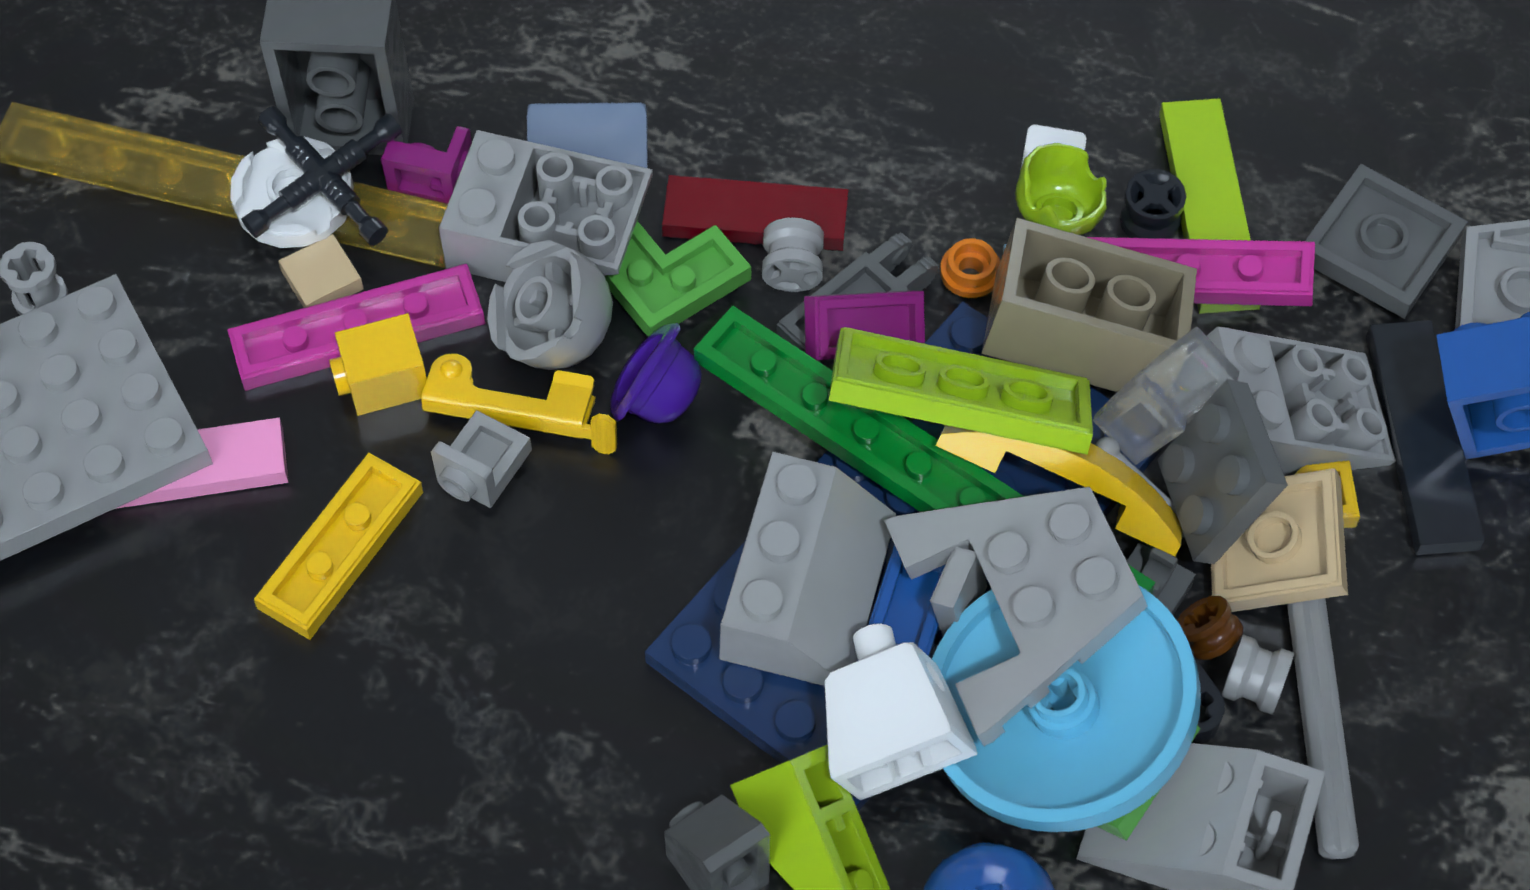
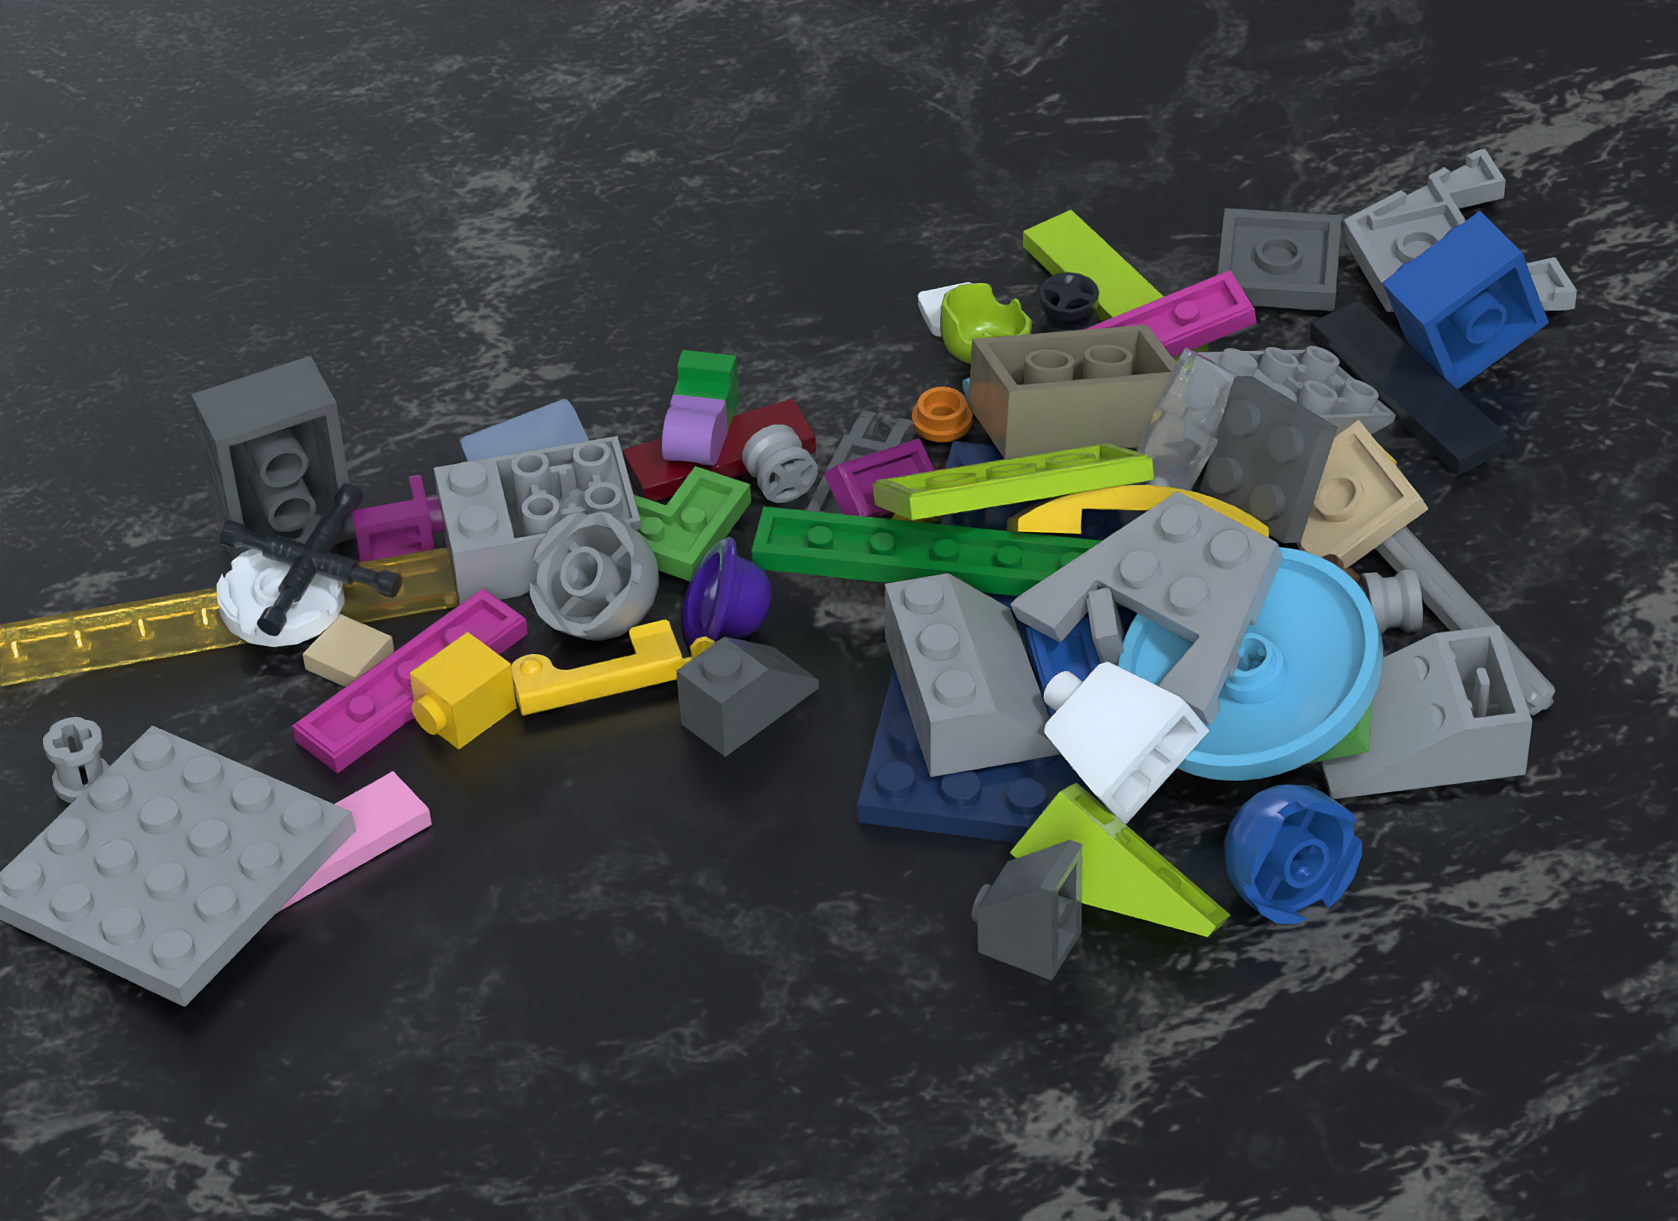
camera: 25 degrees left, 15 degrees down
(338, 546) = (517, 849): yellow tile -> none
(480, 459) = (606, 725): light grey bracket -> none
(620, 478) = (738, 691): none -> dark grey slope
(748, 171) = (701, 407): none -> leg

